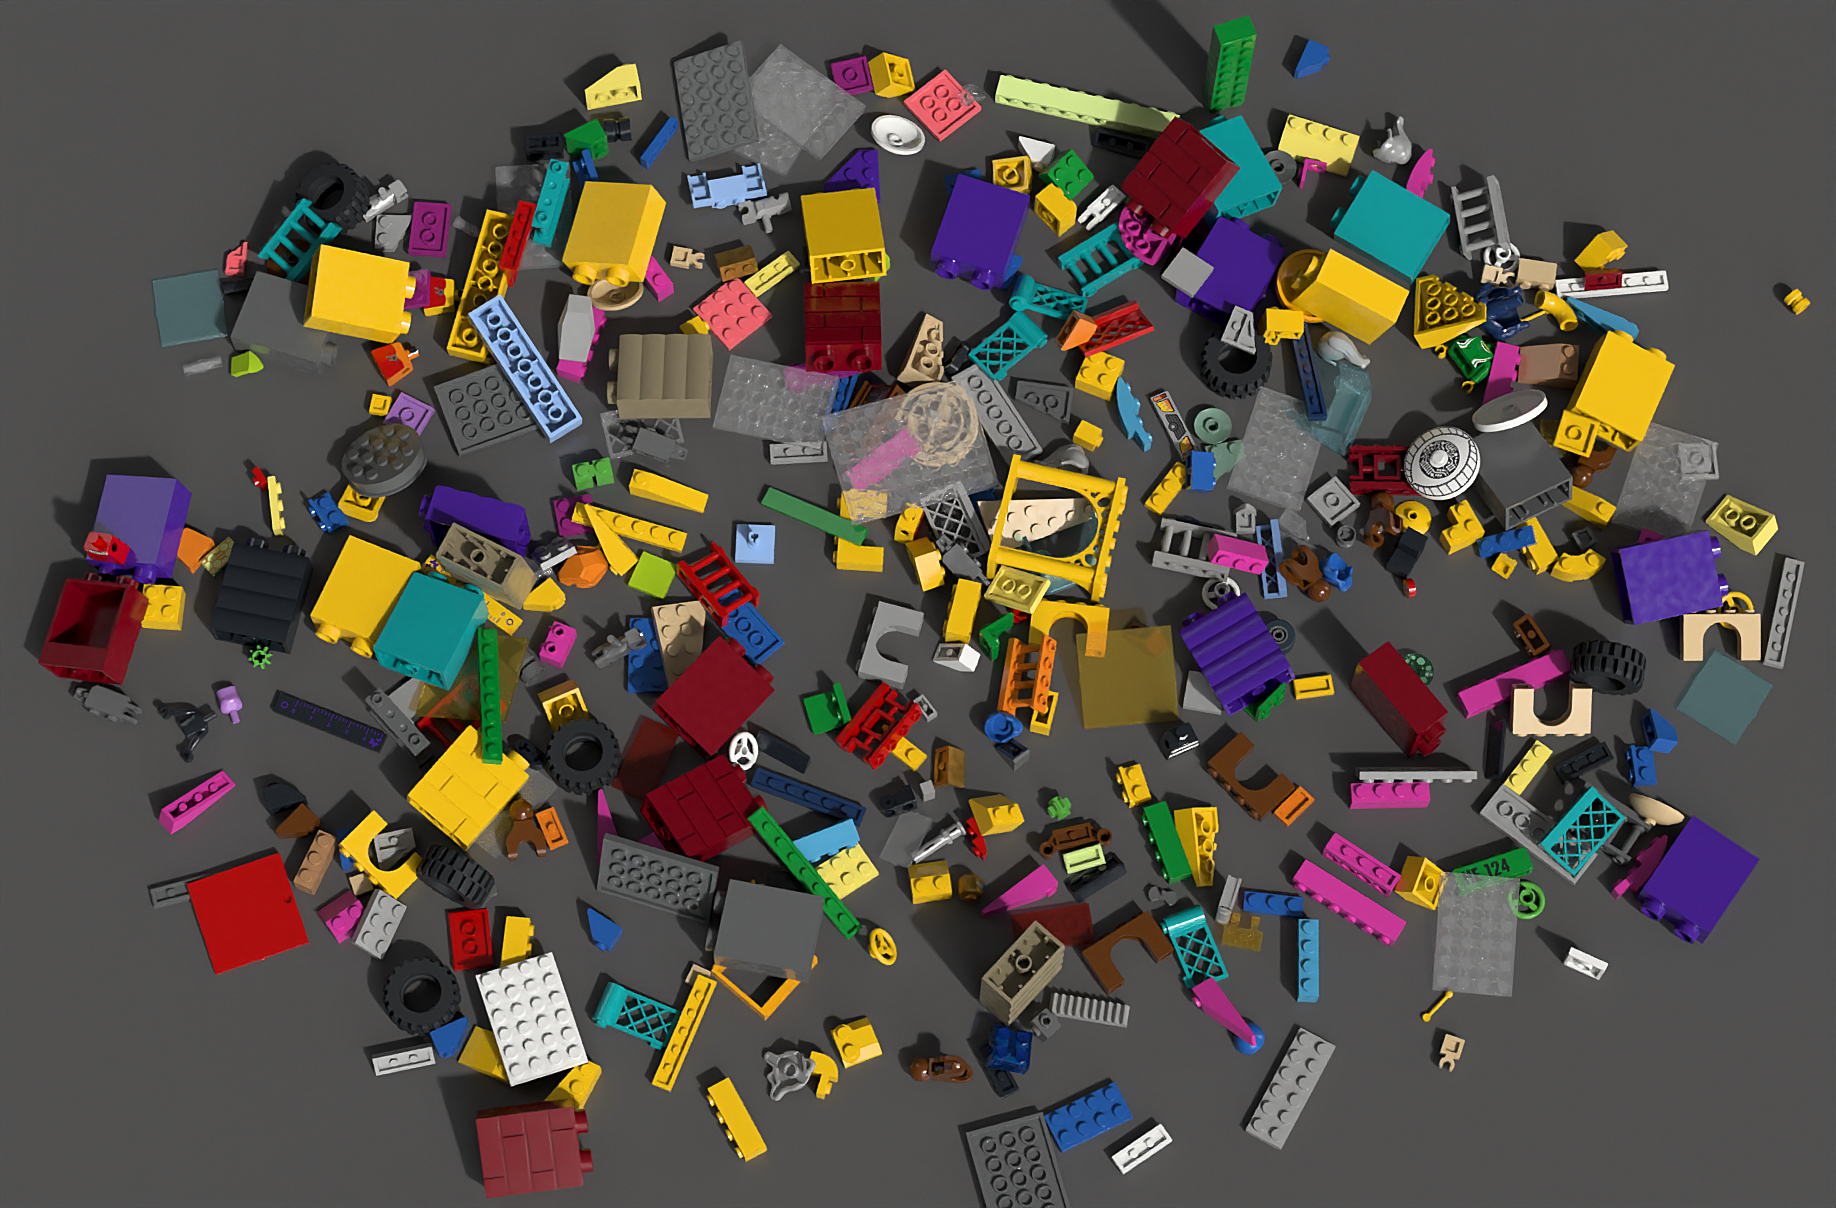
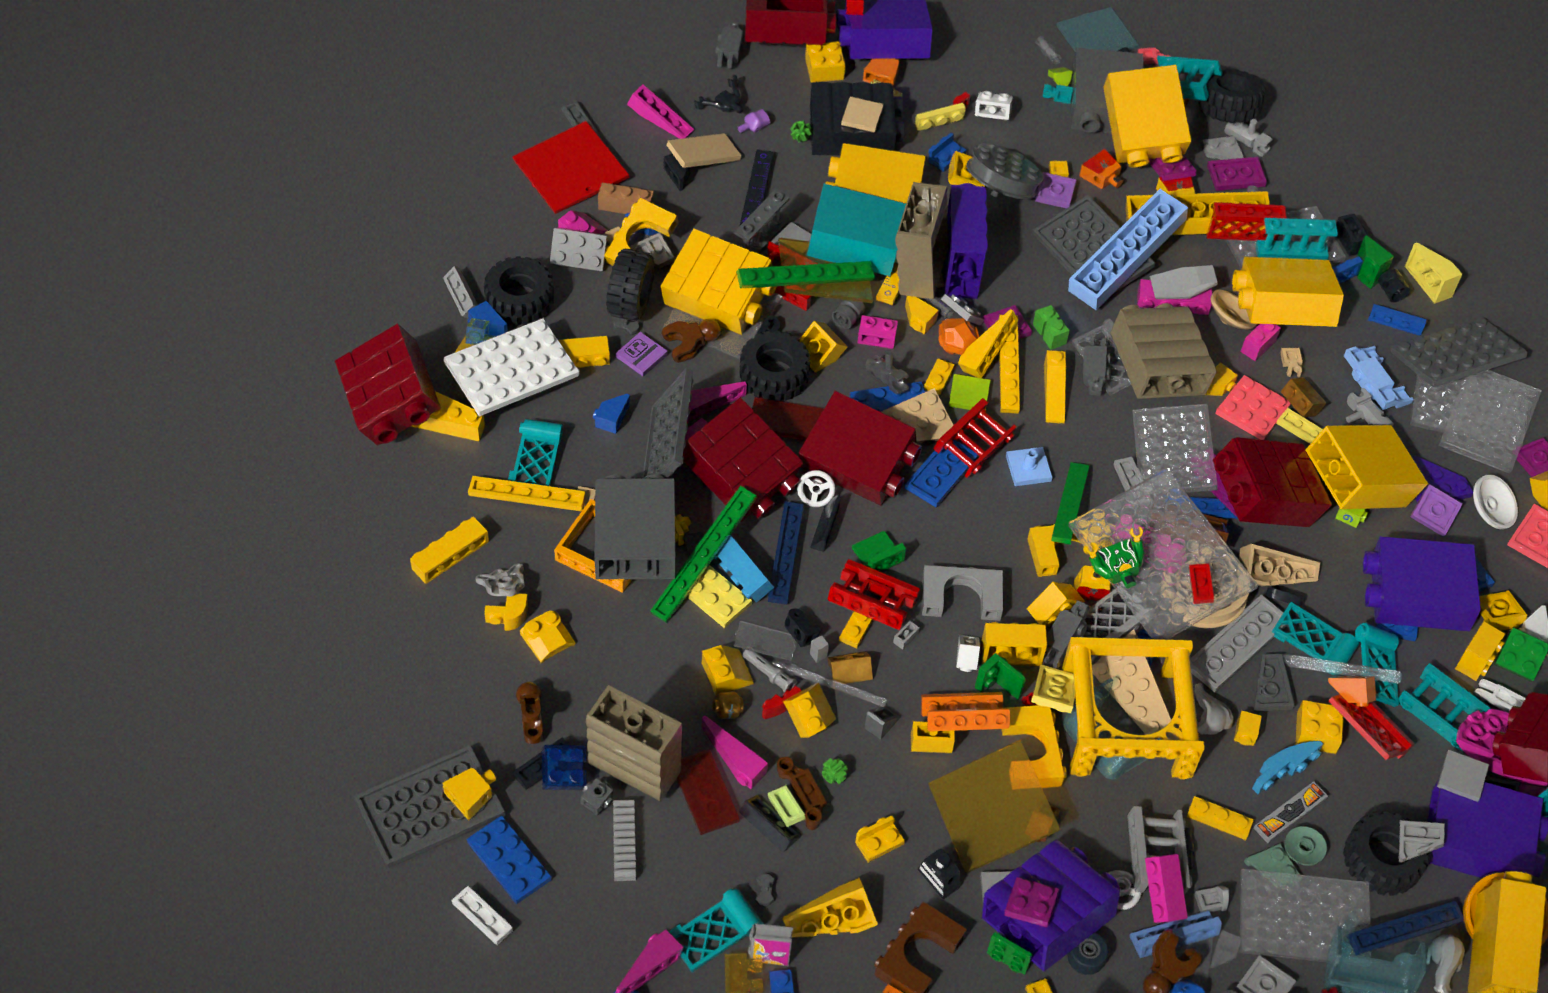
camera: 75 degrees right, 15 degrees down
(267, 765) = (703, 150): none -> tan tile
(272, 371) = (1060, 93): none -> teal plate
(276, 445) = (993, 105): none -> white brick
(276, 584) = (862, 114): none -> tan tile
(299, 824) = (659, 182): reddish brown slope -> none
(470, 1047) = (477, 331): none -> clear light blue brick
(471, 939) = (583, 321): red tile -> none
(528, 887) = (641, 354): none -> medium lavender tile
(552, 828) = (701, 359): orange plate -> none
(625, 599) = (939, 376): none -> yellow plate
(879, 947) = (641, 632): yellow piece -> none
(894, 190) = (1436, 510): none -> medium lavender plate
(915, 490) = (1119, 560): none -> green torso
(941, 821) = (792, 669): none -> clear bar
(958, 426) = (1201, 583): none -> red plate
(1001, 726) = (905, 702): blue hair -> none
(1020, 1138) = (469, 790): none -> yellow torso
(1051, 334) = (1341, 668): none -> clear axle
(1141, 929) = (685, 837): reddish brown arch -> none
(1166, 842) = (827, 876): green brick -> none
(1200, 472) = (1247, 839): blue brick -> none
(1245, 667) = (1031, 902): none -> magenta plate
(1281, 324) = (1446, 886): yellow brick -> none

